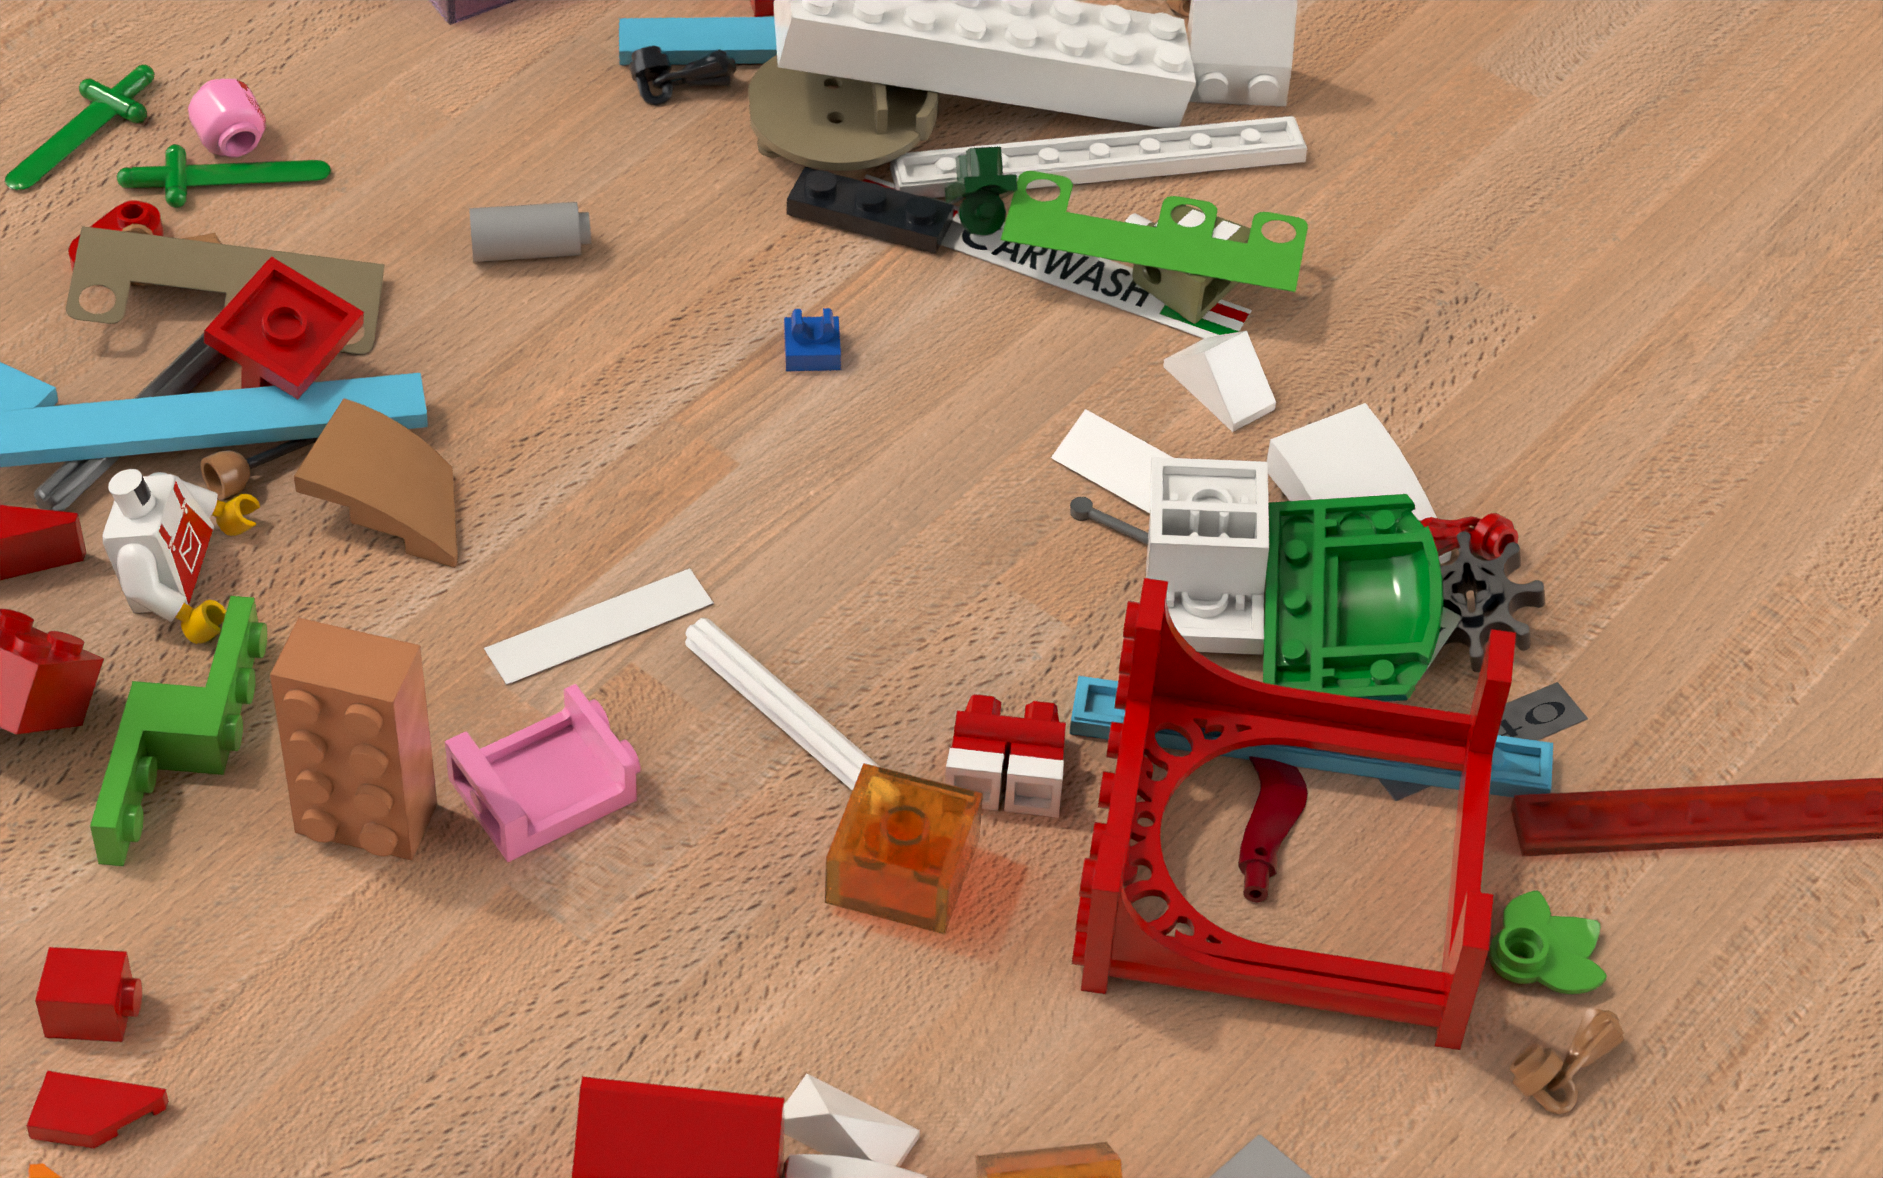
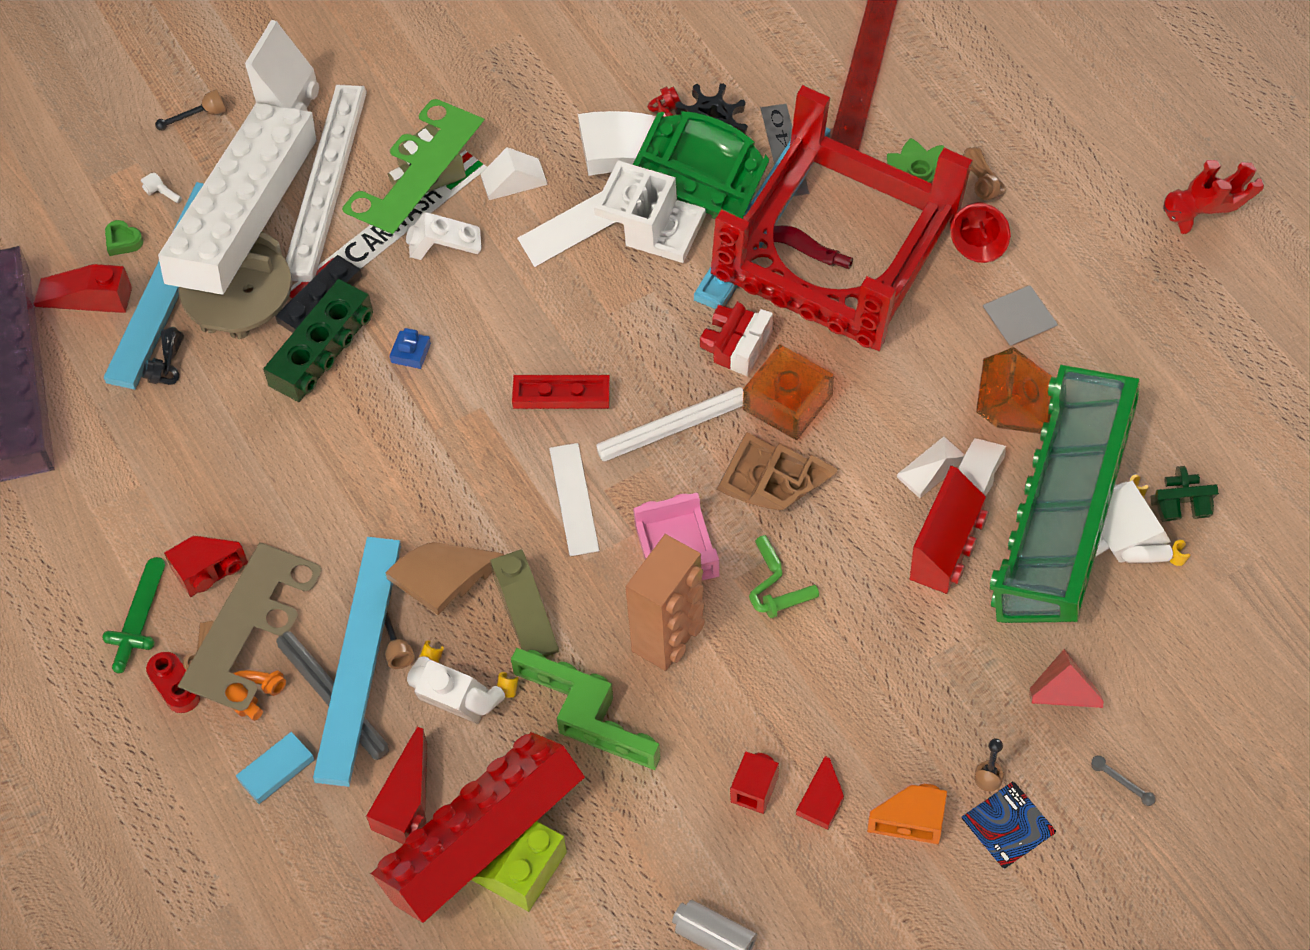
camera: 65 degrees left, 10 degrees up
(104, 106) = (45, 667): green sword -> none
(134, 342) = (271, 683): none -> orange plant
(227, 117) = (99, 598): bright pink head -> none
(283, 329) = (320, 592): red bracket -> none
(318, 206) = (203, 561): none -> red slope
(370, 586) = (523, 603): none -> olive slope
(457, 942) = (772, 605): none -> bright green piece
(528, 231) = (268, 463): light grey brick -> none
(734, 878) = (771, 474): none -> medium nougat slope
(777, 225) = (334, 323): none -> dark green brick
(797, 547) = (561, 392): none -> red plate
(981, 188) = (339, 234): dark green hips -> none
(1049, 319) = (442, 231): none -> white bracket
(1082, 509) = (577, 262): dark grey hinge -> none
(1413, 1068) = (980, 232): none -> red hat

